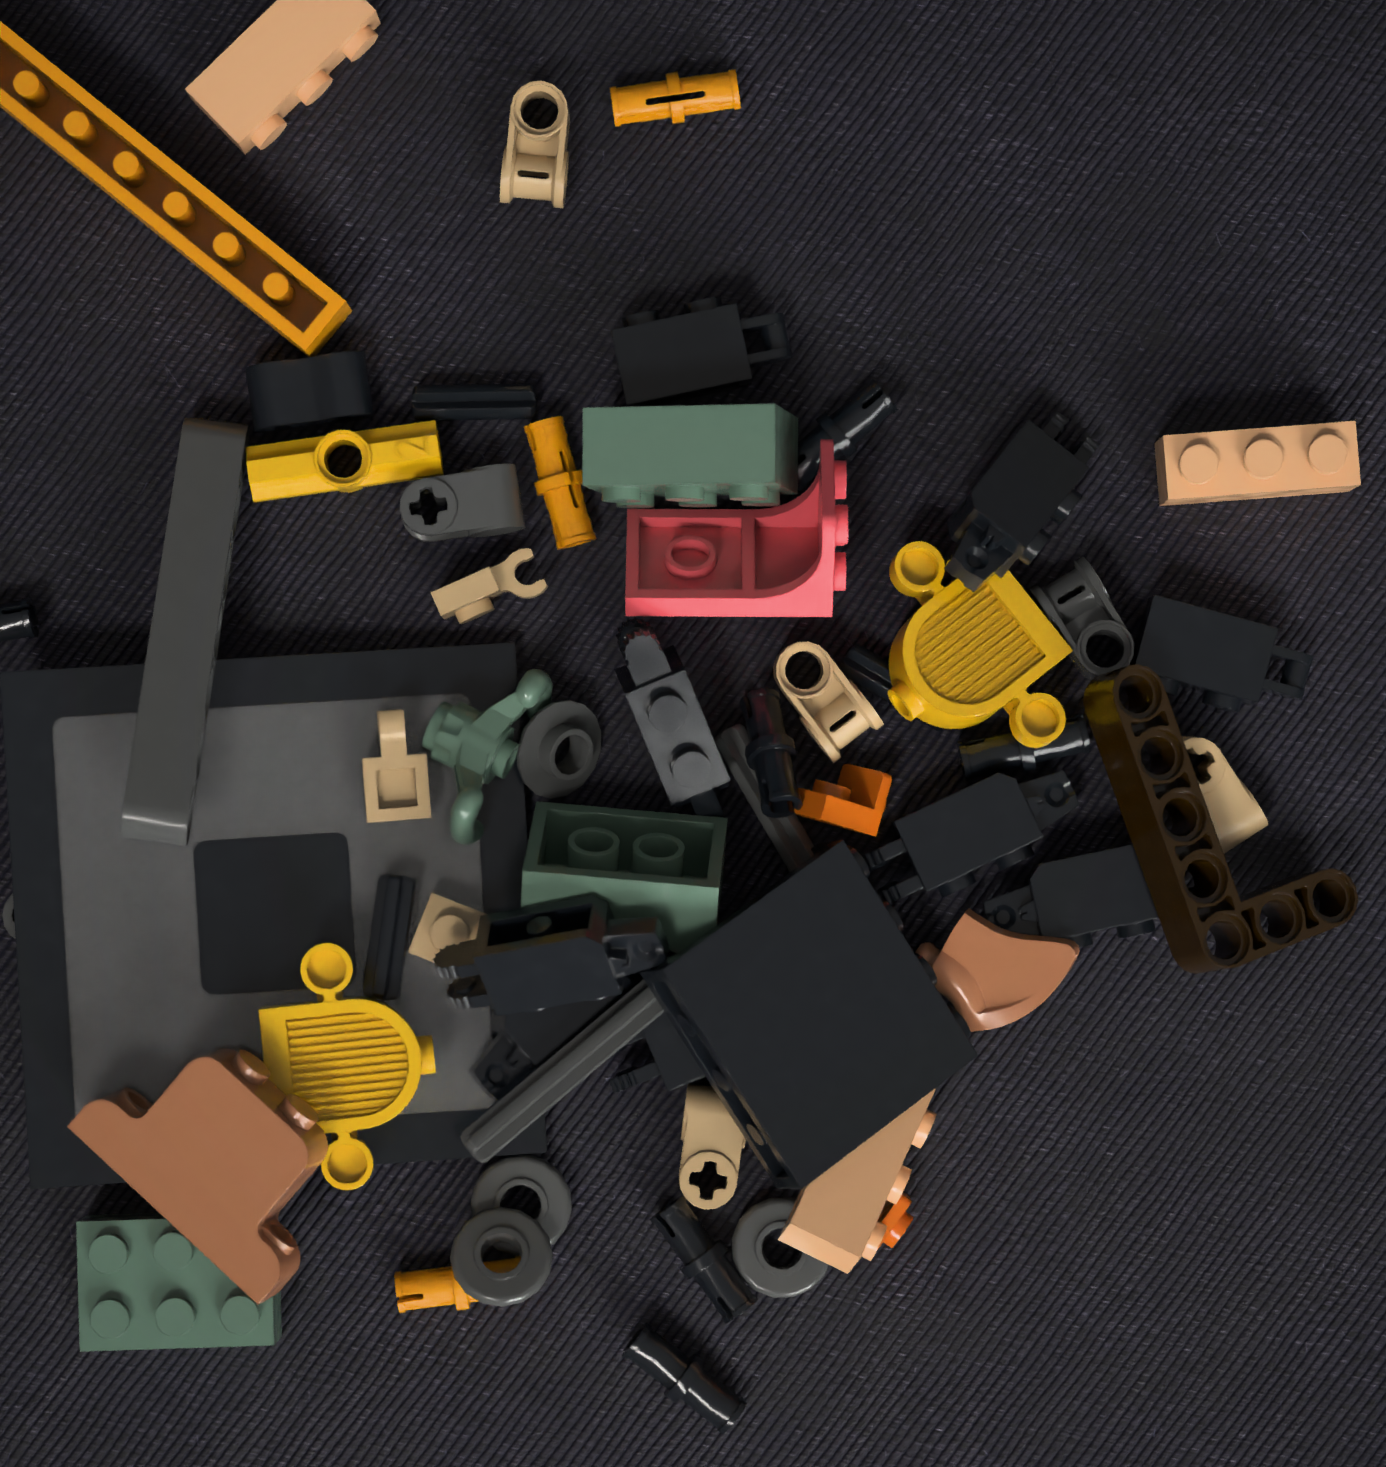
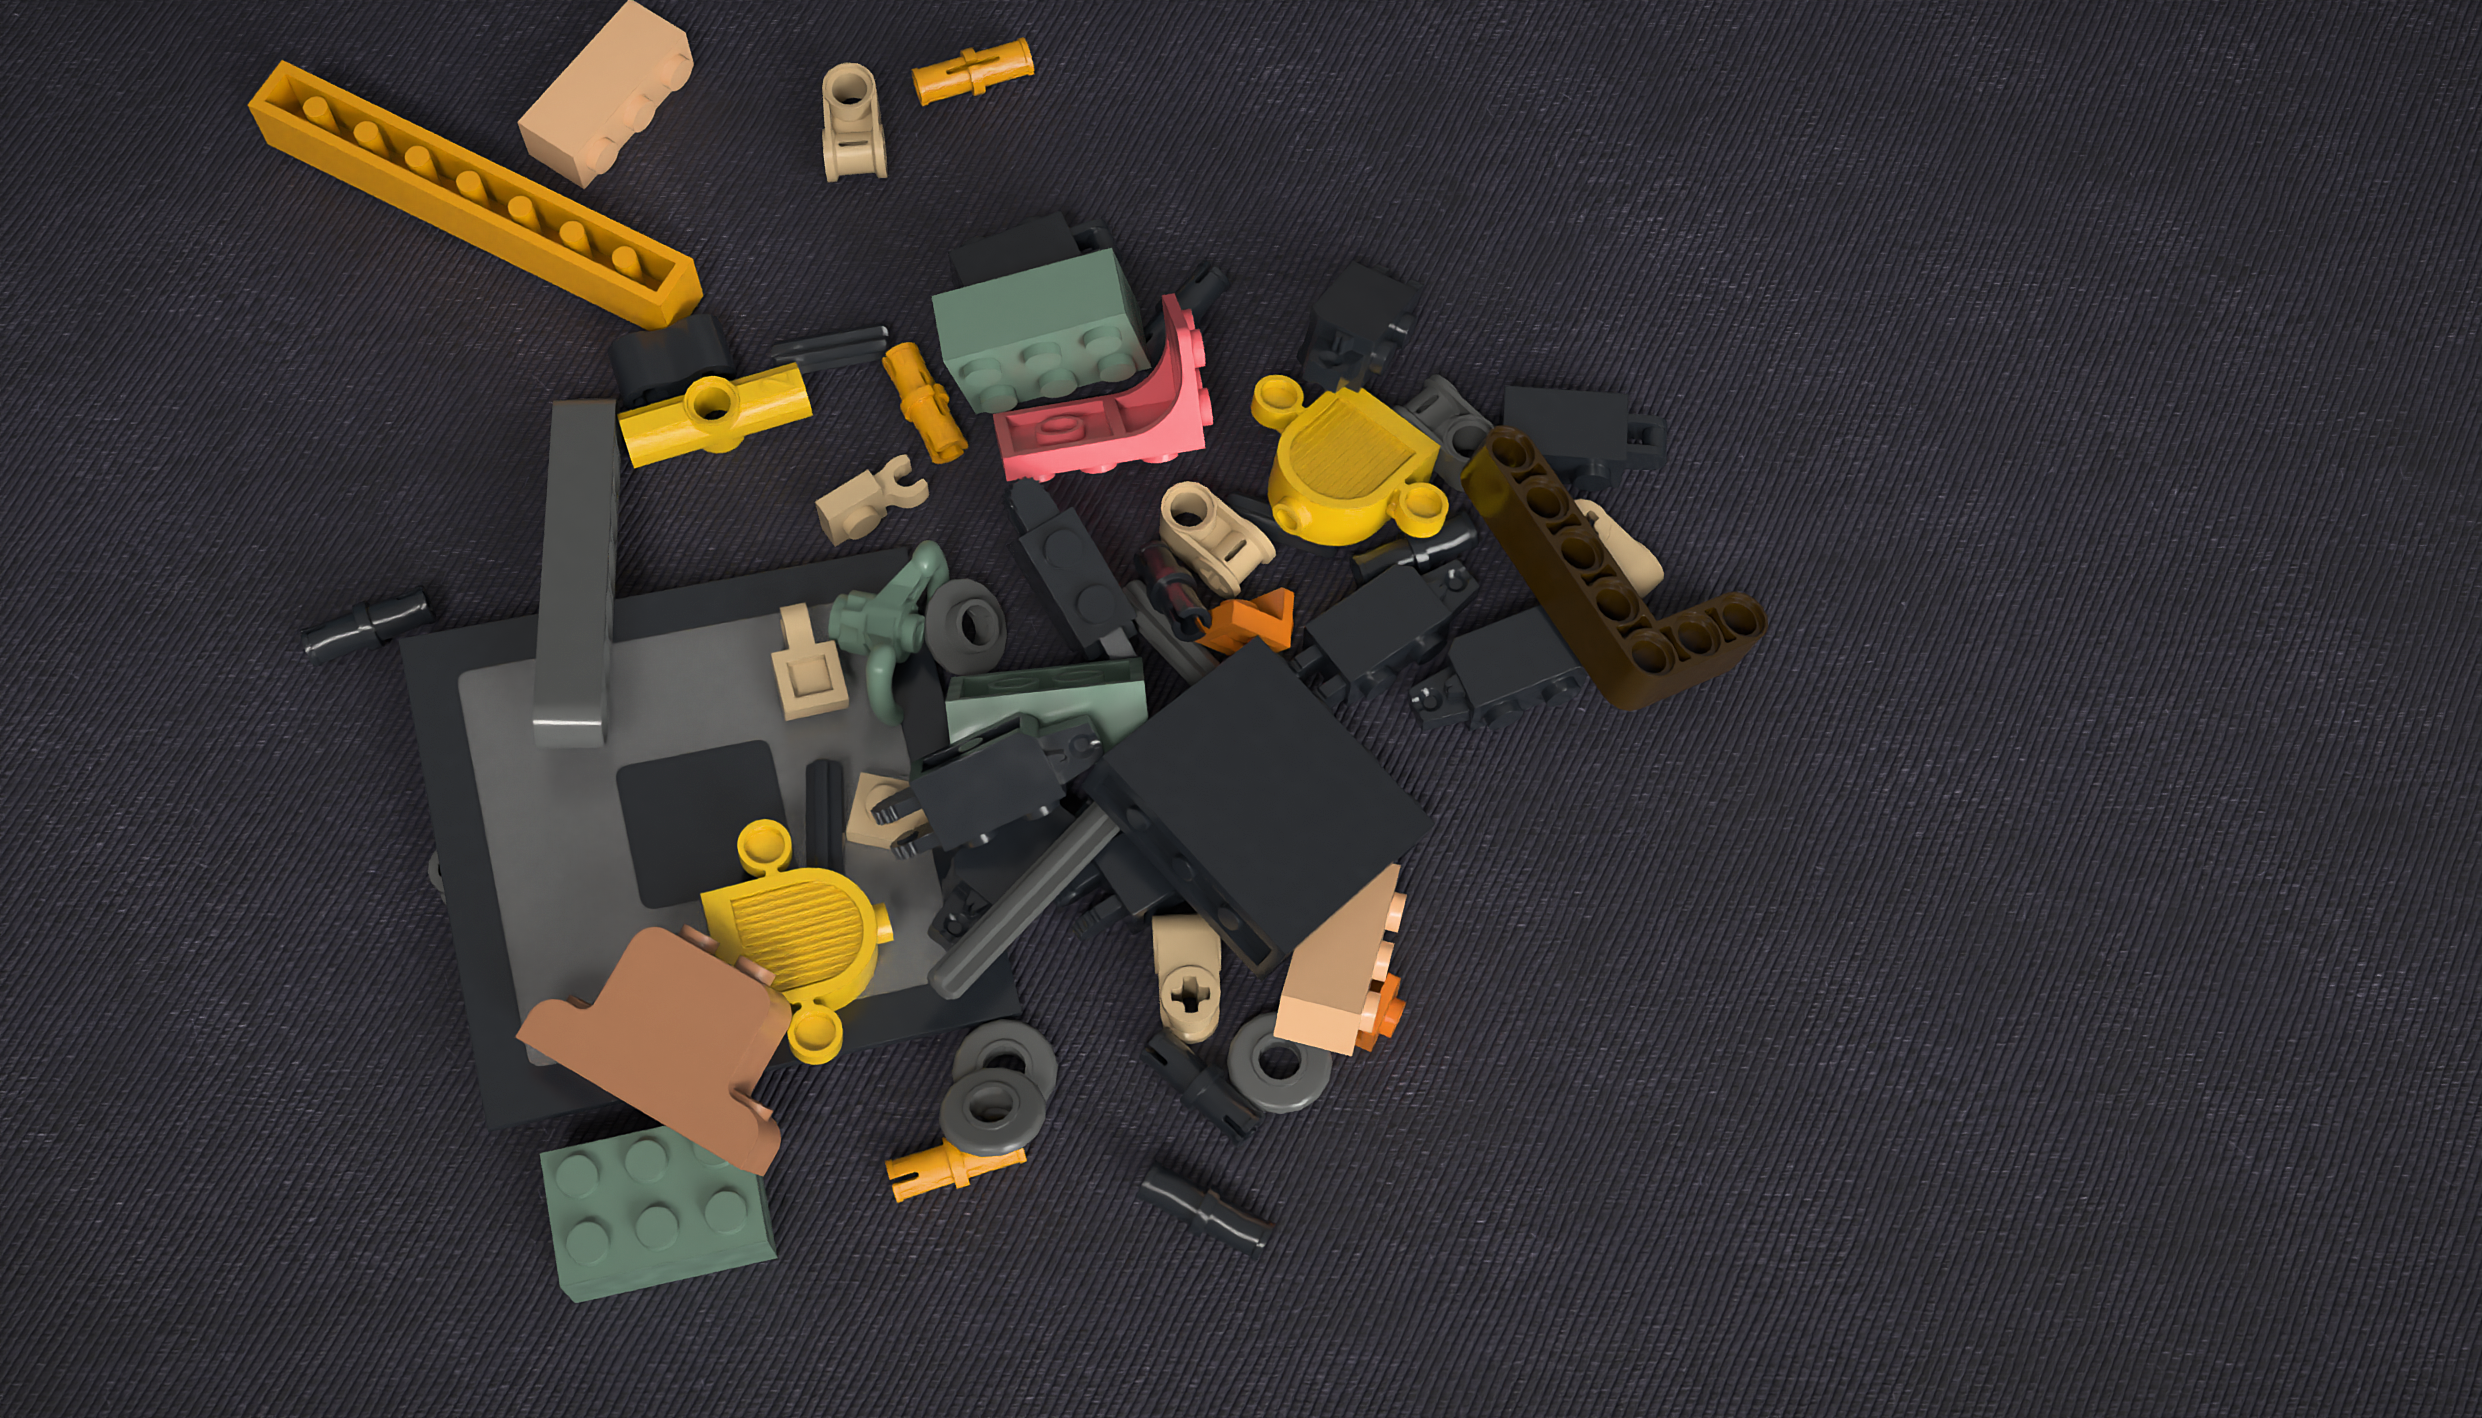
camera: 15 degrees left, 20 degrees down
(477, 500) = (838, 433): dark grey piece -> none
(996, 972) = (1440, 750): nougat arm -> none
(1257, 463) = (1572, 270): light nougat brick -> none

